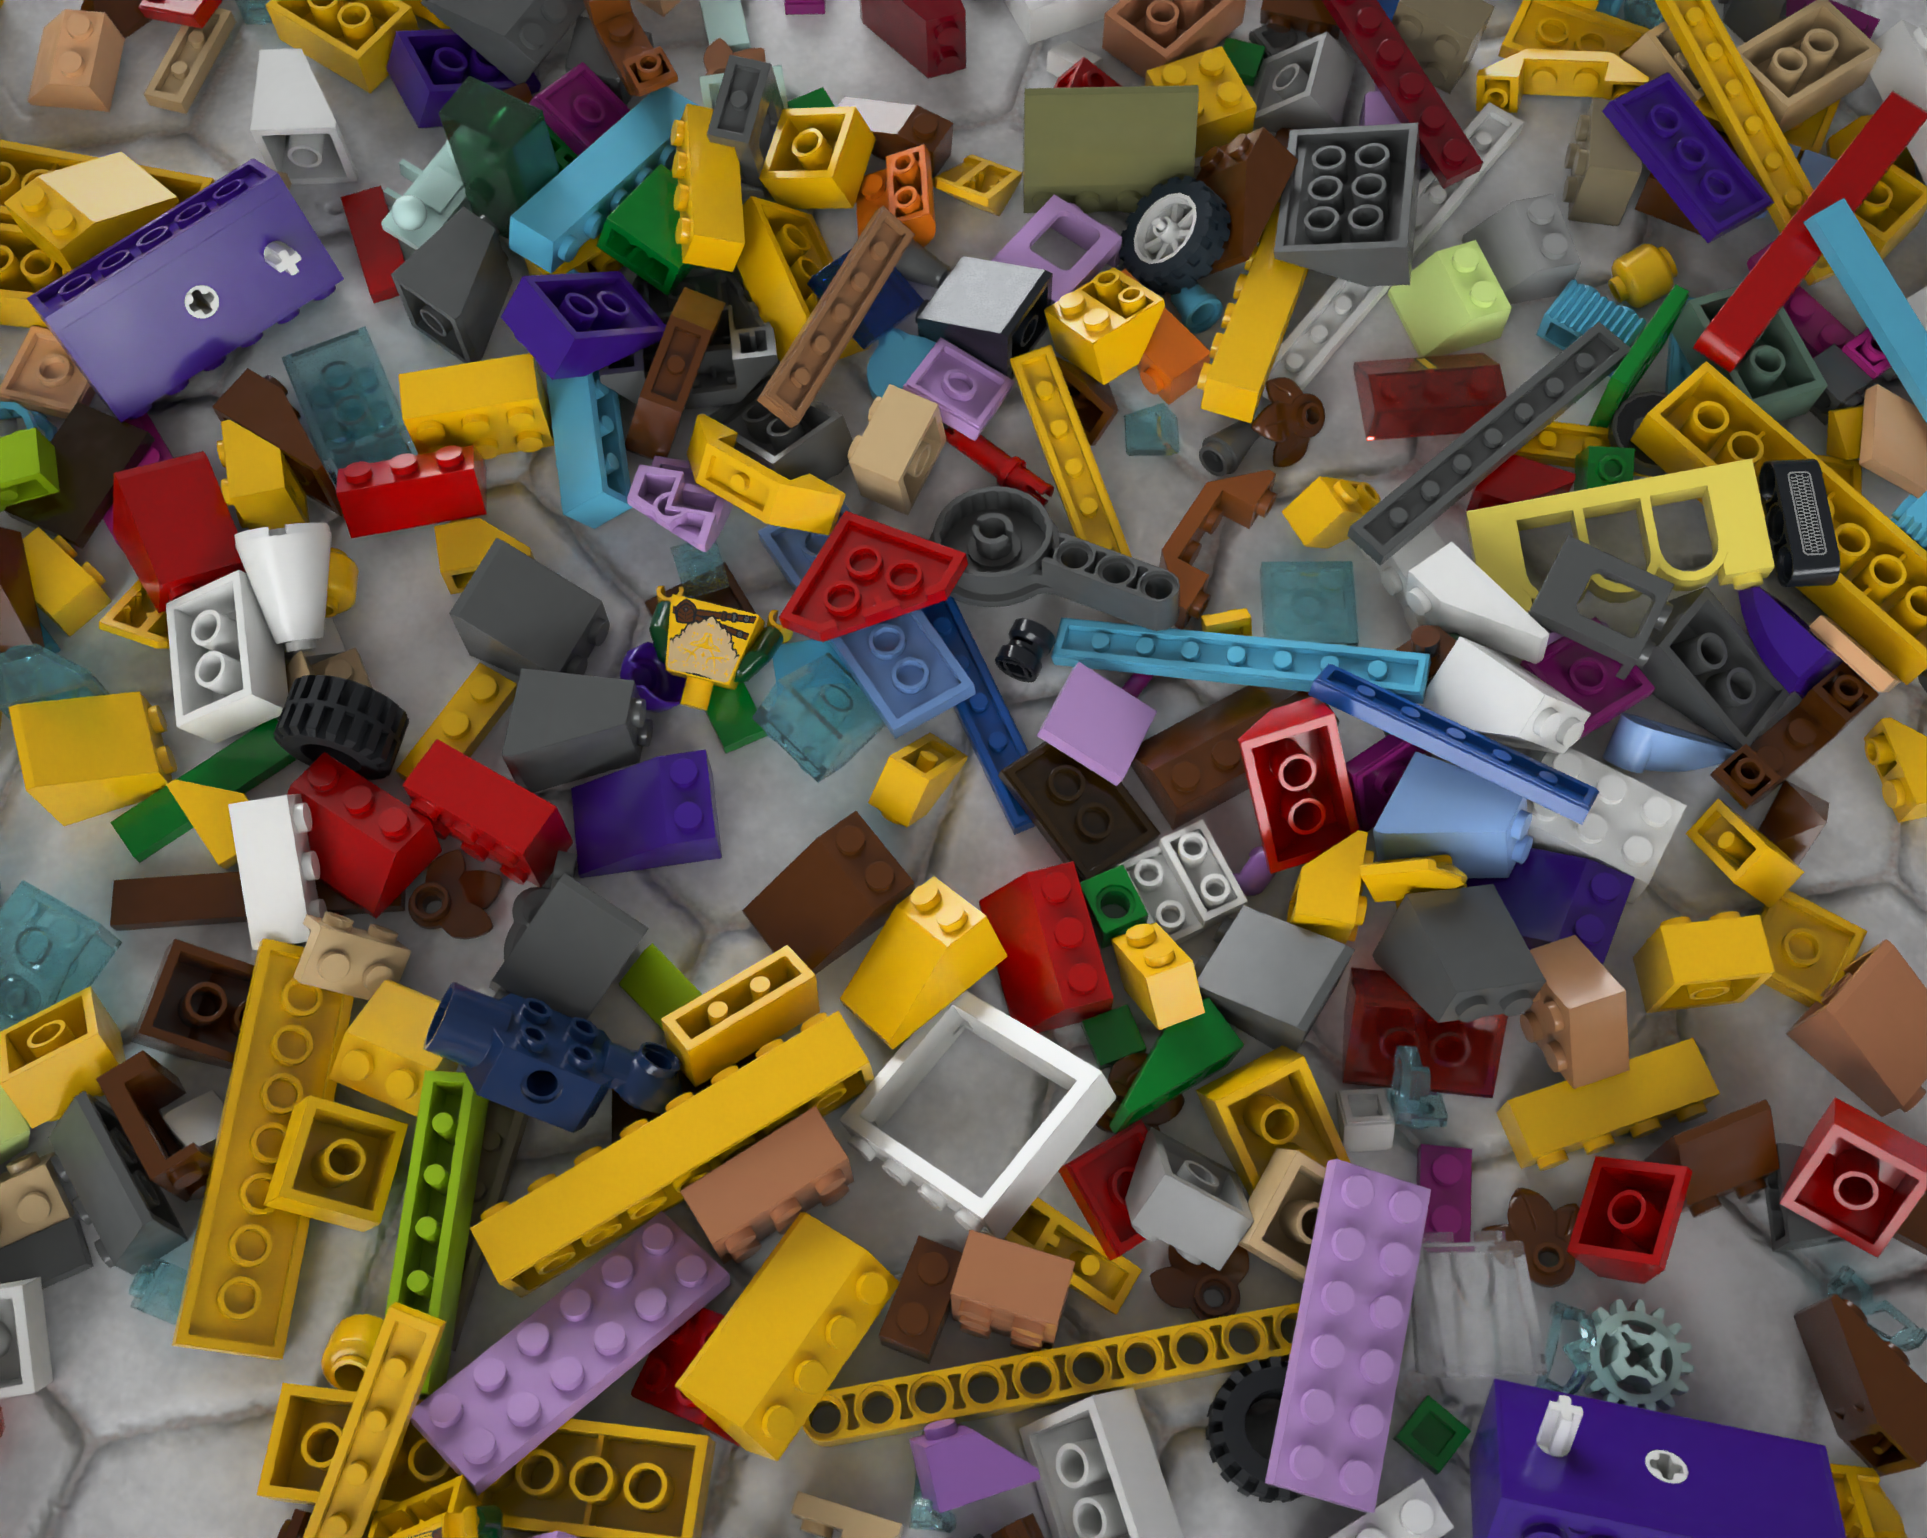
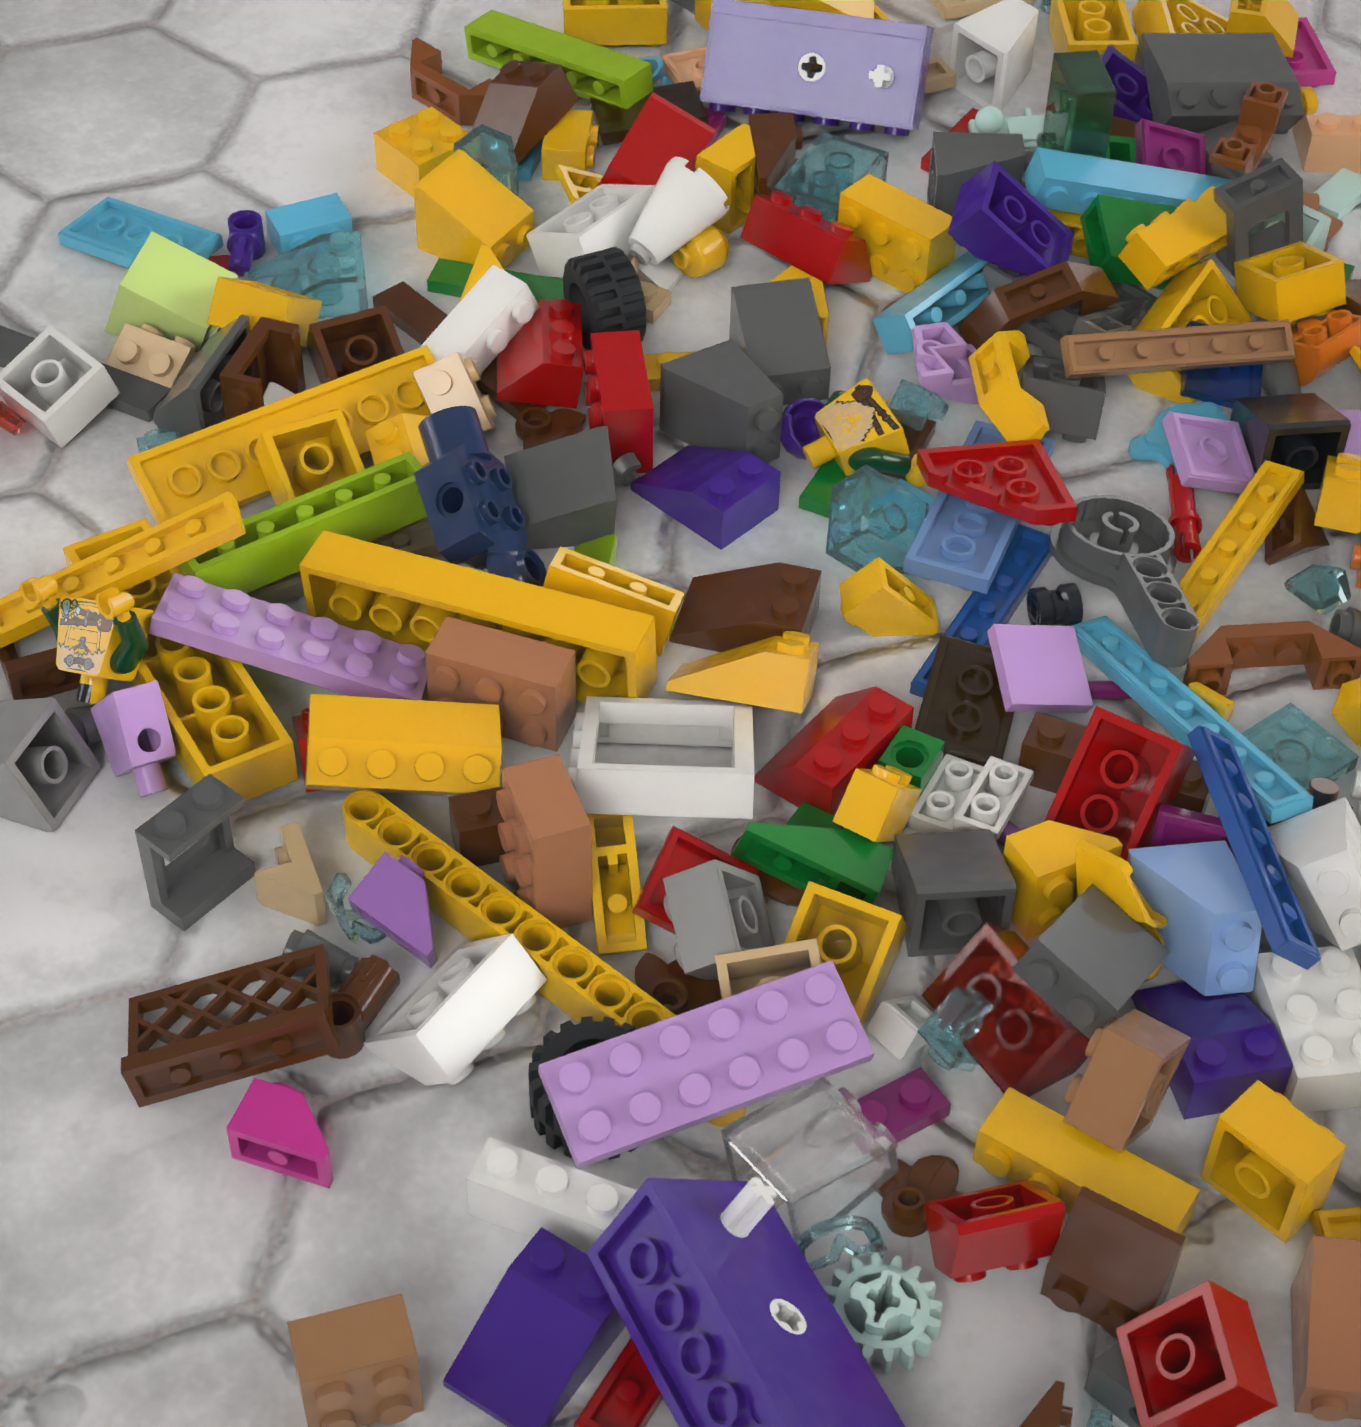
camera: 50 degrees right, 20 degrees down
(897, 448) = (1119, 441): tan brick -> none

